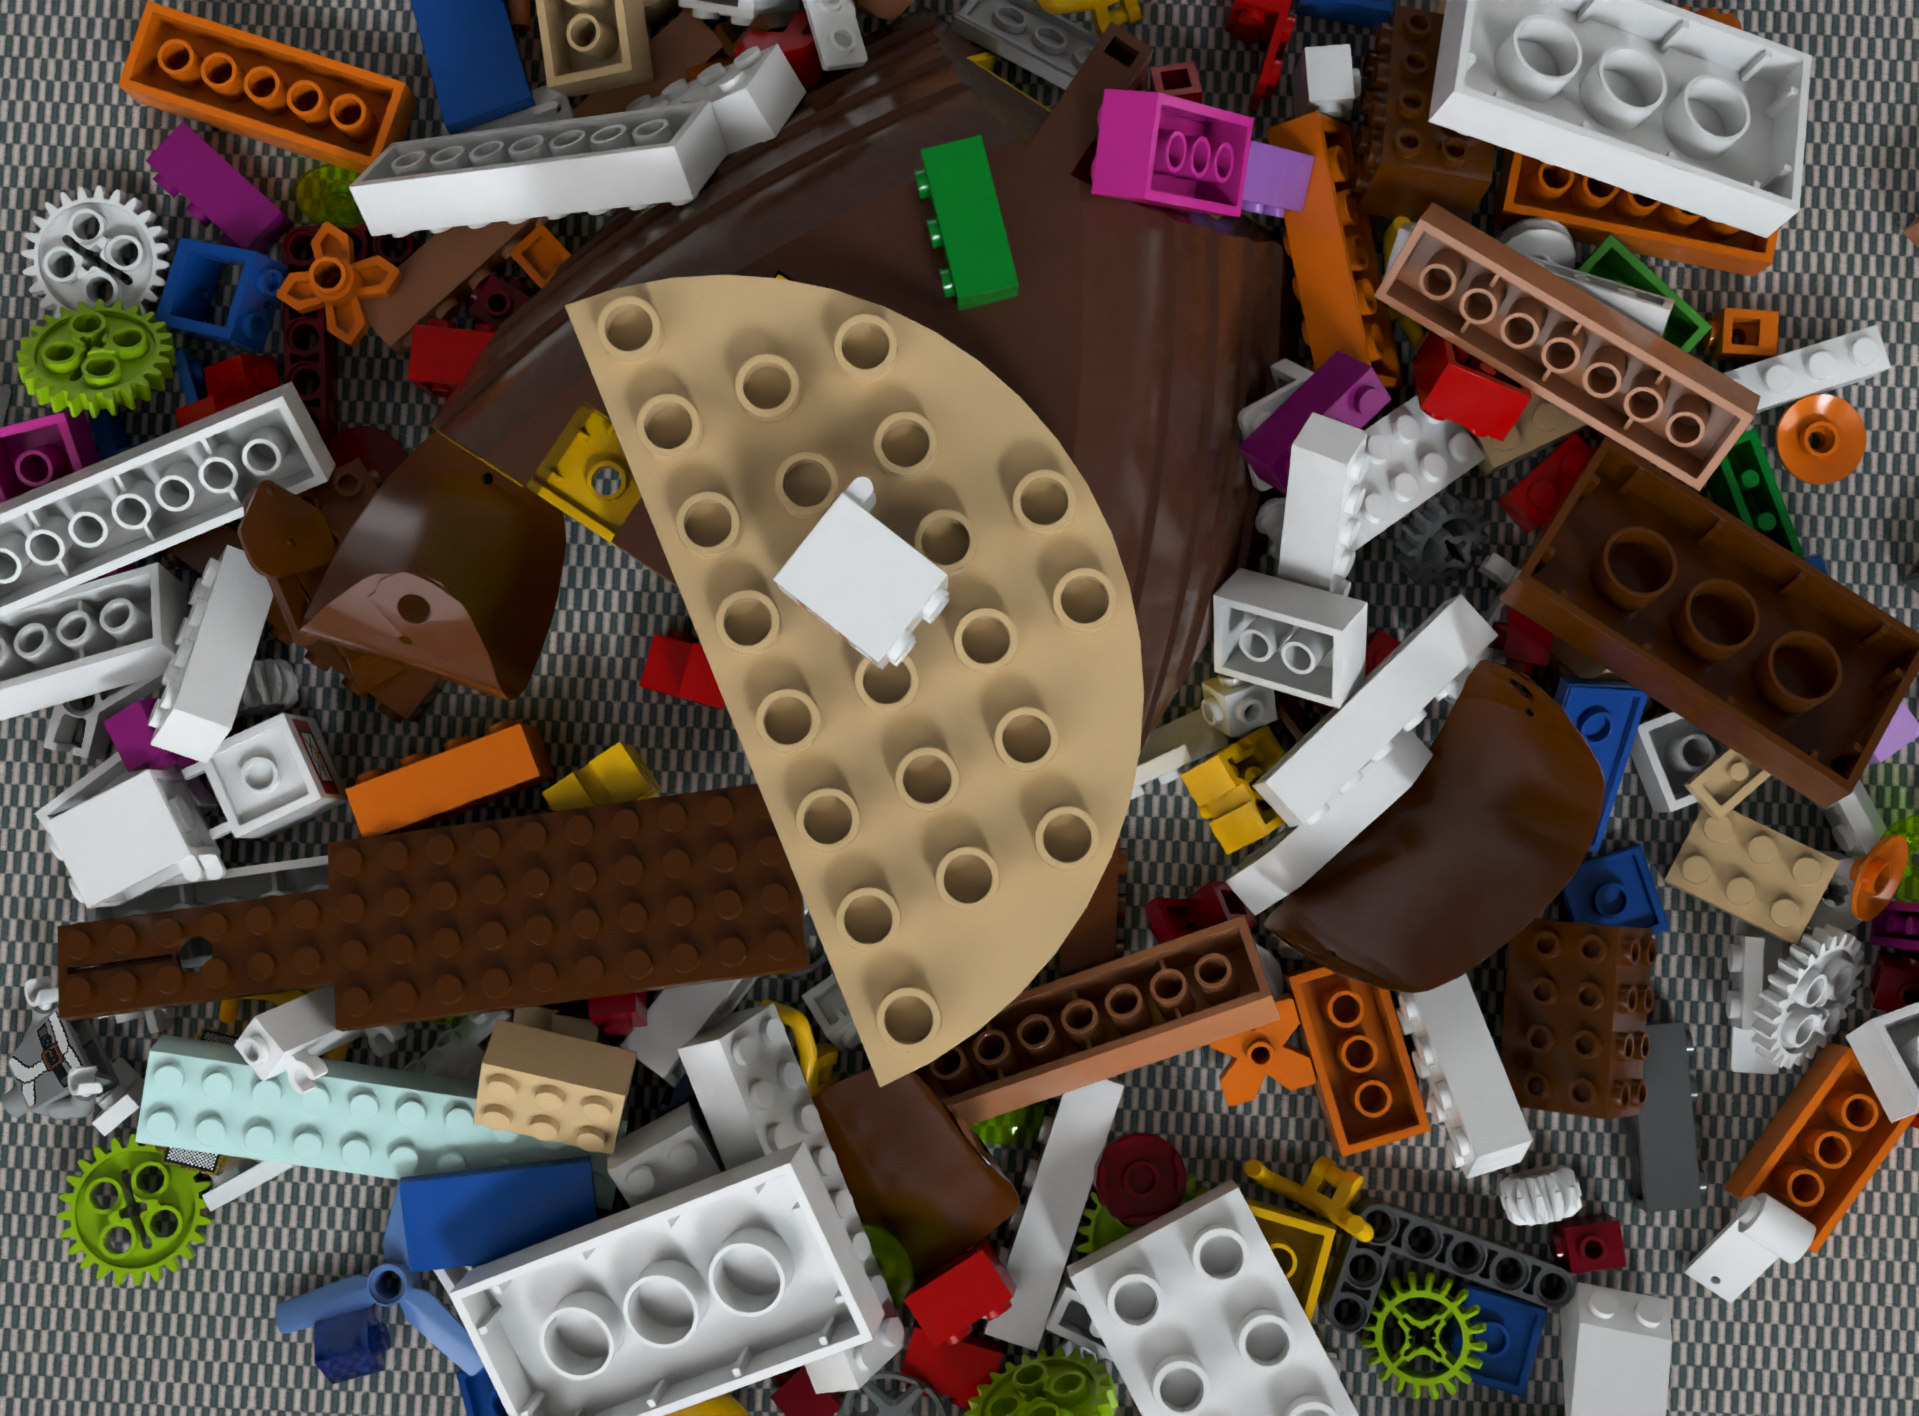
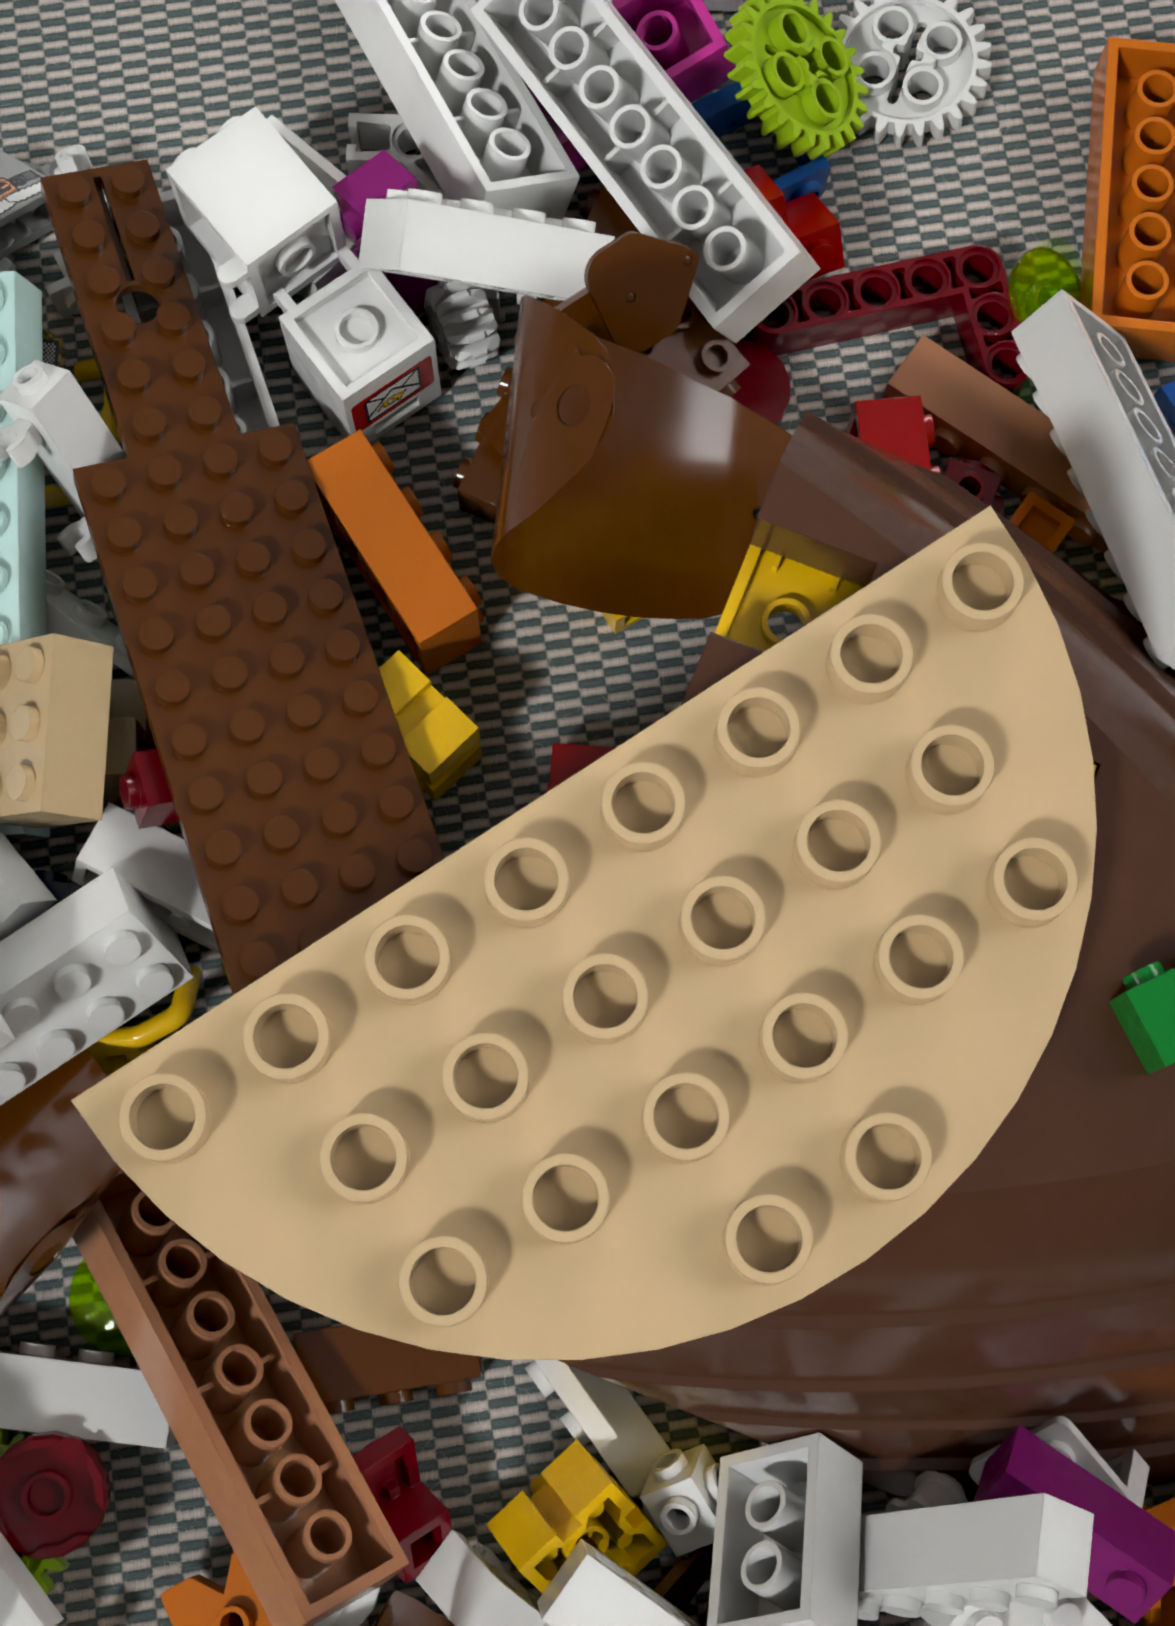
camera: 75 degrees right, 10 degrees down
(192, 286) = (905, 166): blue window -> none
(217, 192) = (1015, 171): magenta brick -> none
(339, 284) = (947, 311): orange plant -> none
(864, 579) = (729, 930): white container -> none

